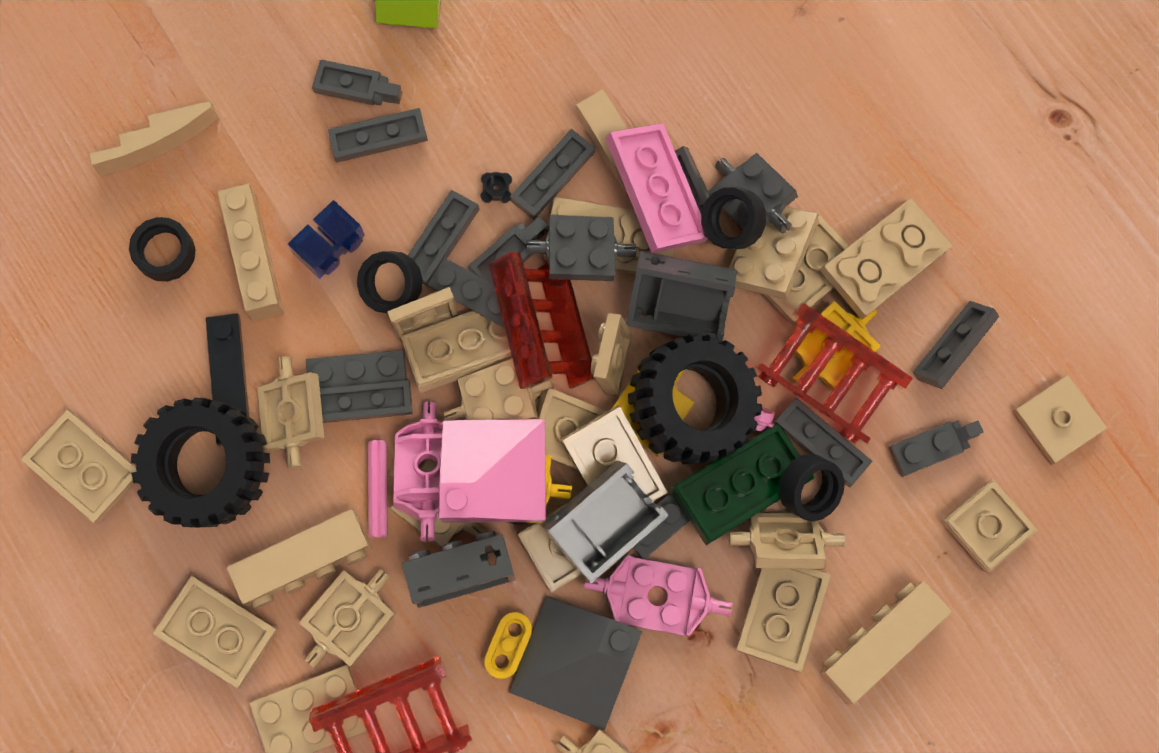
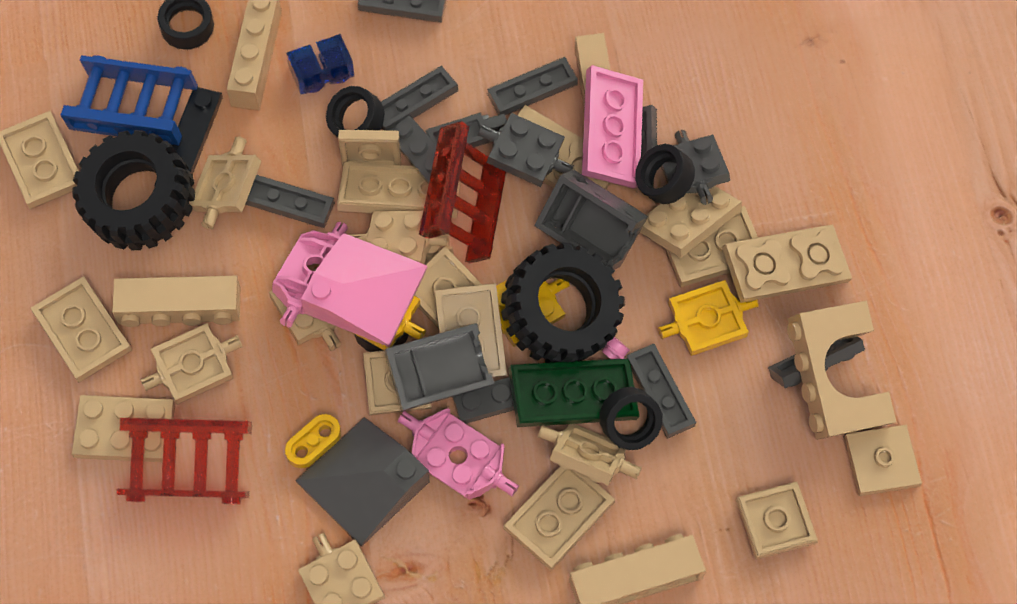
camera: 25 degrees right, 10 degrees down
(166, 386) = (109, 120): none -> blue fence
(358, 368) = (298, 174): dark grey plate -> none
(377, 489) = (266, 274): bright pink axle -> none
(457, 569) = (300, 356): dark grey piece -> none
(492, 179) = (480, 72): black plate -> none
(613, 353) = (511, 243): tan plate -> none
(834, 341) = (707, 307): clear red fence -> none
(933, 446) = (758, 435): dark grey hinge -> none
(954, 332) = (830, 410): none -> tan arch

